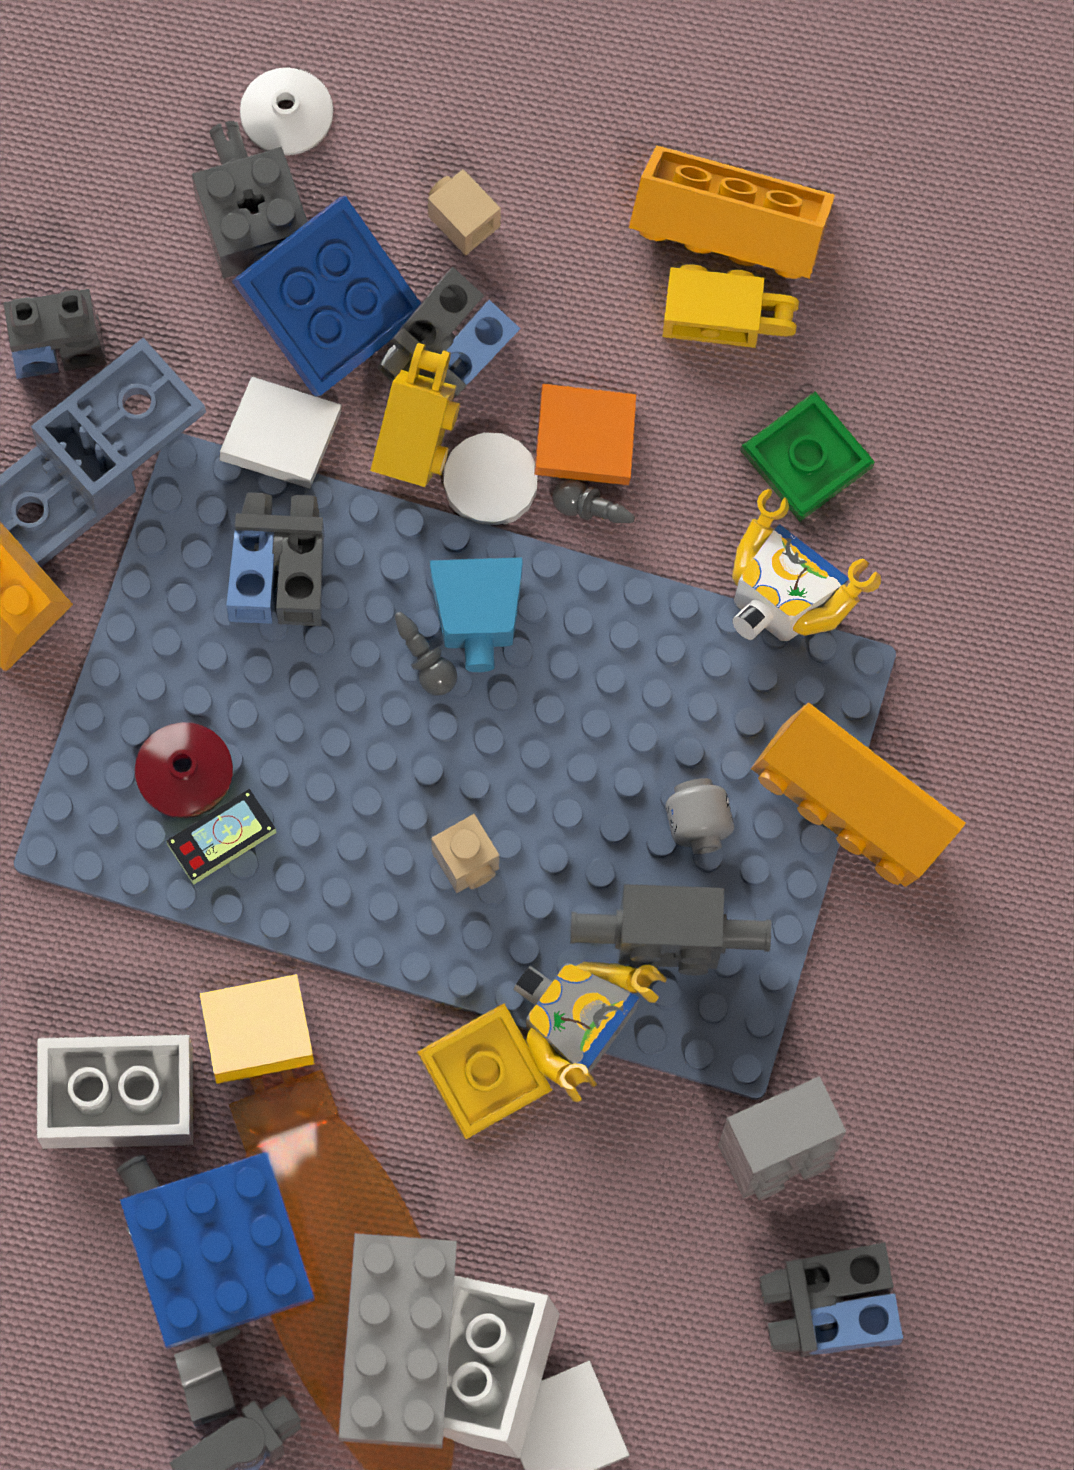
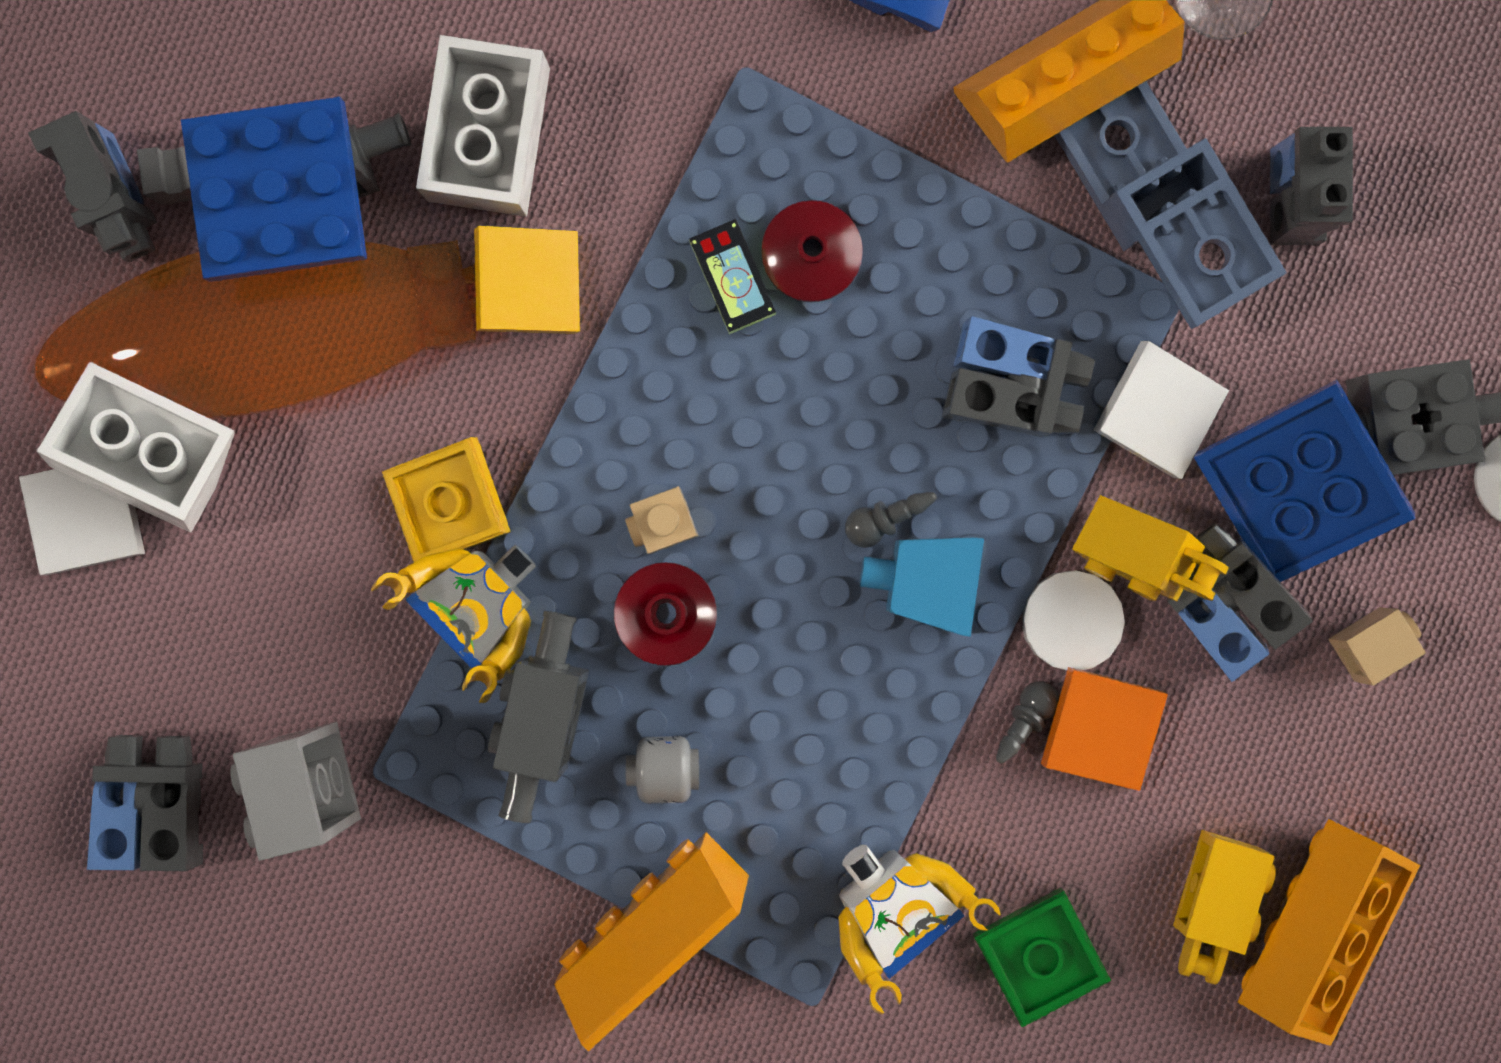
camera: 100 degrees right, 15 degrees up
(398, 1341) = (161, 361): light grey plate -> none
(553, 815) = (637, 613): none -> dark red dish

